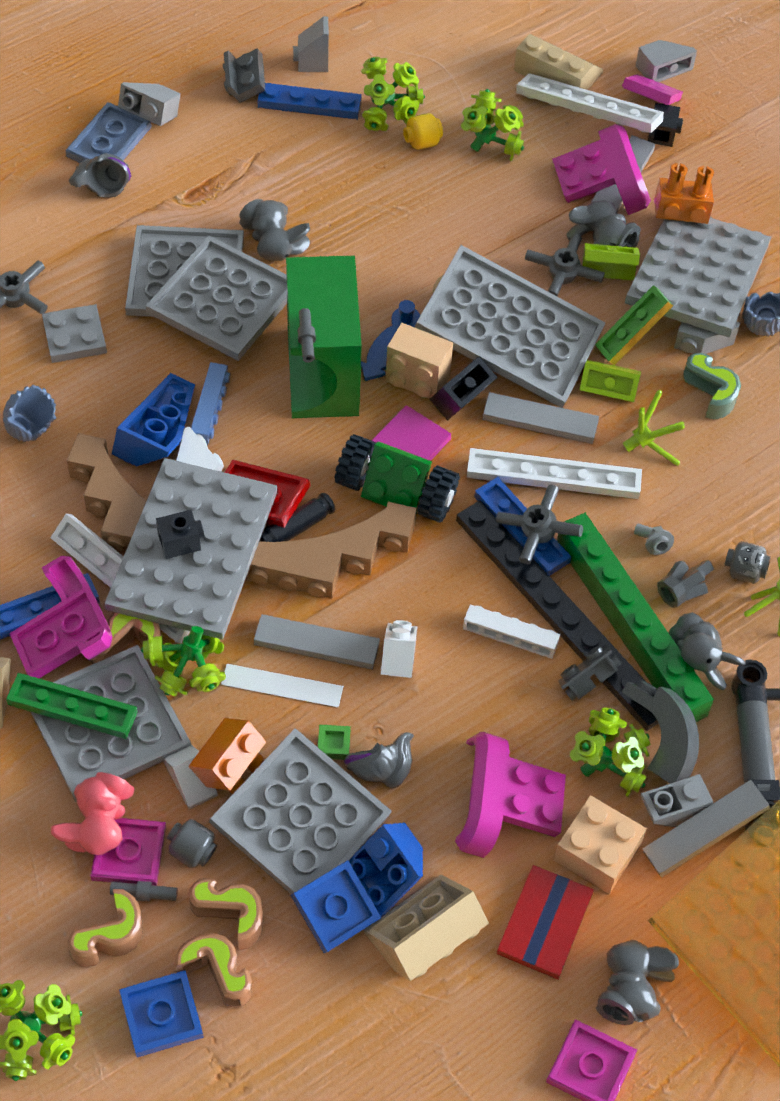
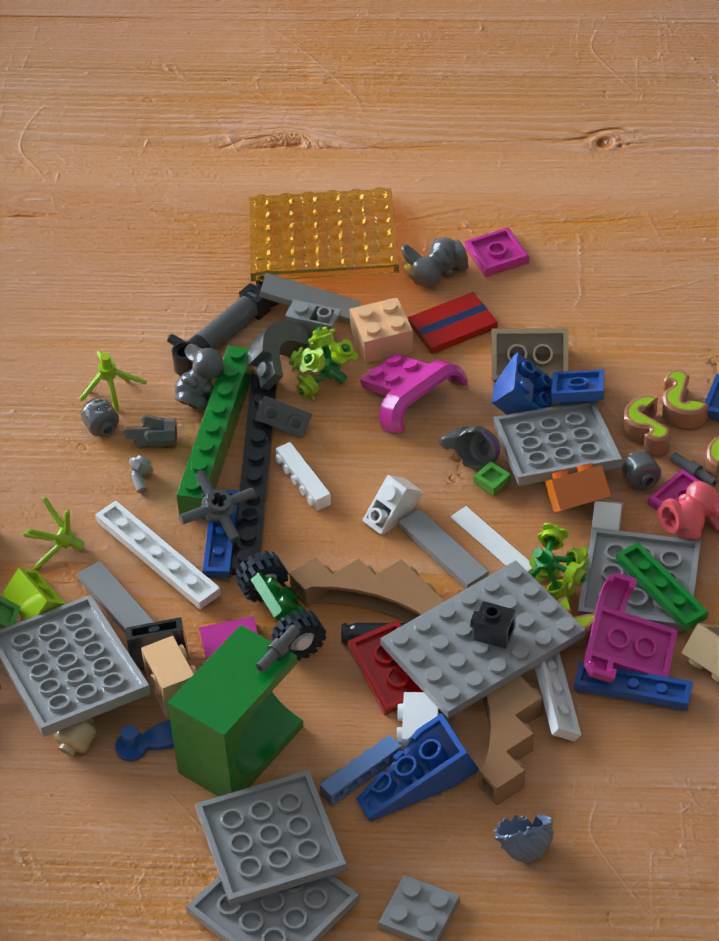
camera: 135 degrees left, 10 degrees down
(268, 222) = (158, 896): dark grey animal -> none

